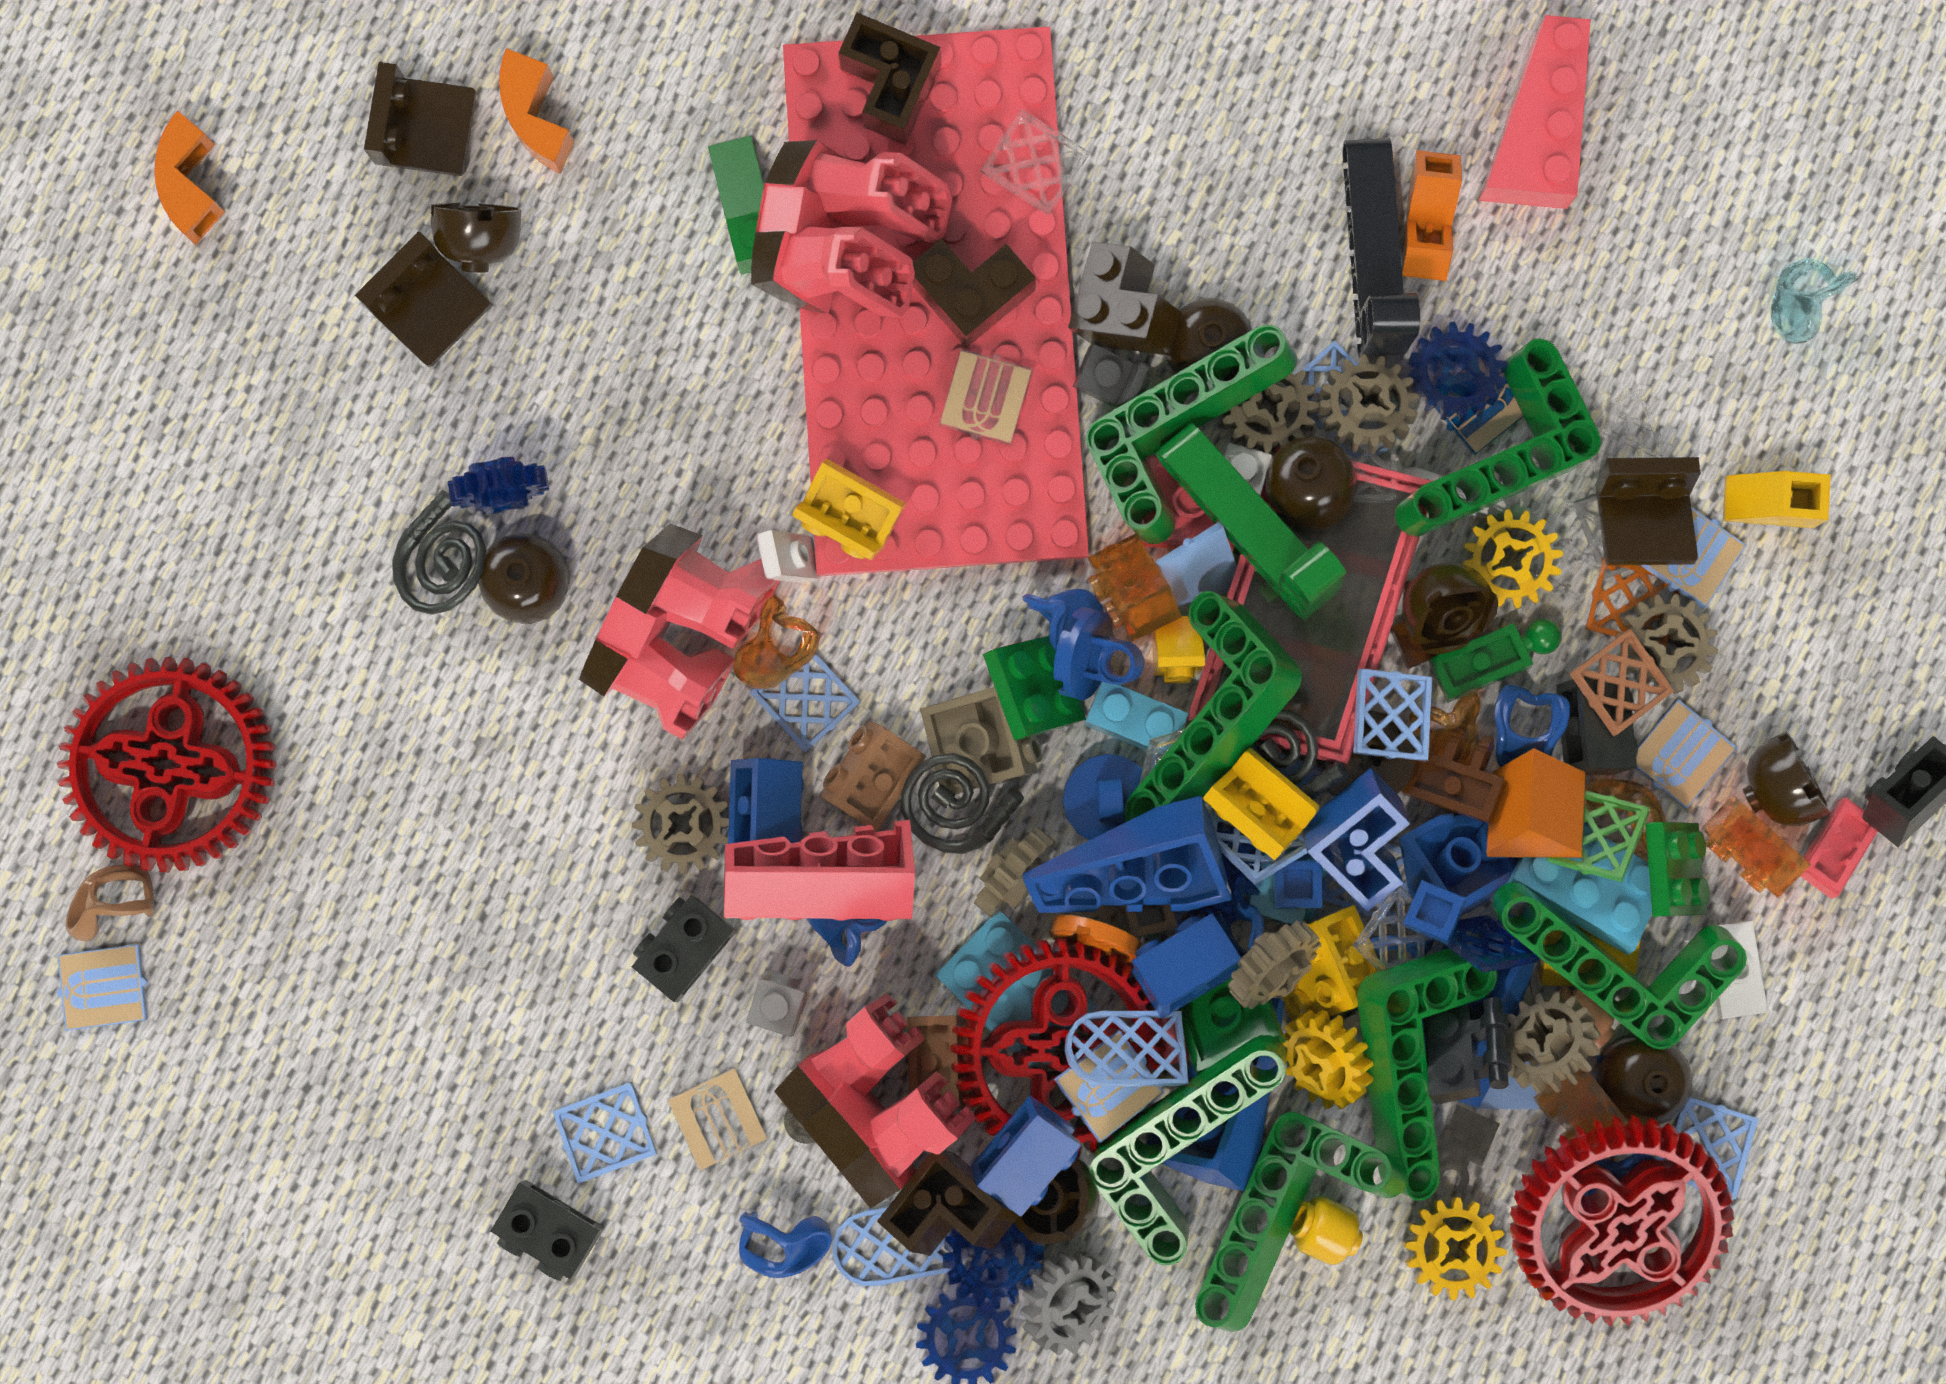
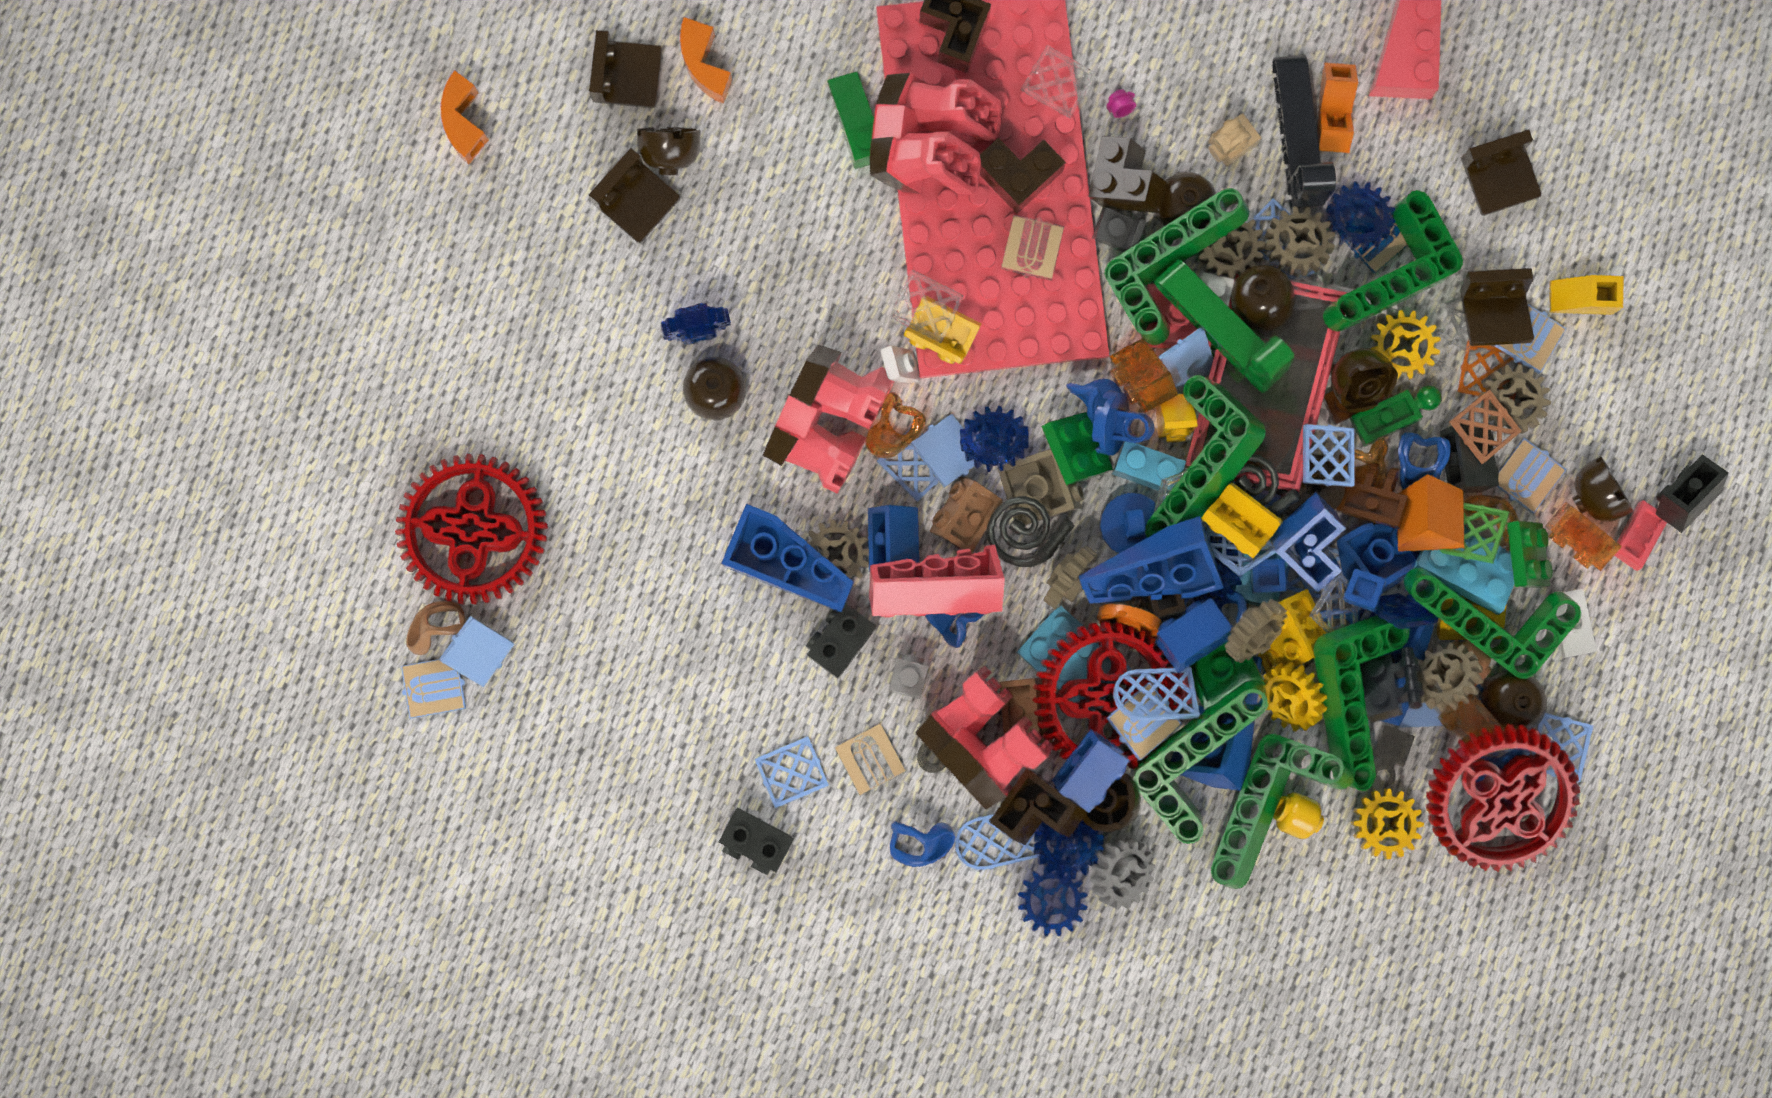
camera: 10 degrees left, 0 degrees up
(162, 940) = (476, 651): none -> light blue piece
(442, 564) = (658, 381): pearl dark grey piece -> none
(599, 825) = (781, 558): none -> blue wedge
(811, 502) = (895, 315): none -> clear window
(851, 681) = (942, 452): none -> light blue piece
(917, 682) = (993, 440): none -> clear blue gear
(1124, 197) = (1121, 103): none -> dark pink plate
(1281, 255) = (1233, 140): none -> tan brick
(1663, 319) = (1501, 173): none -> dark brown bracket
(1799, 313) = (1596, 165): clear light blue piece -> none

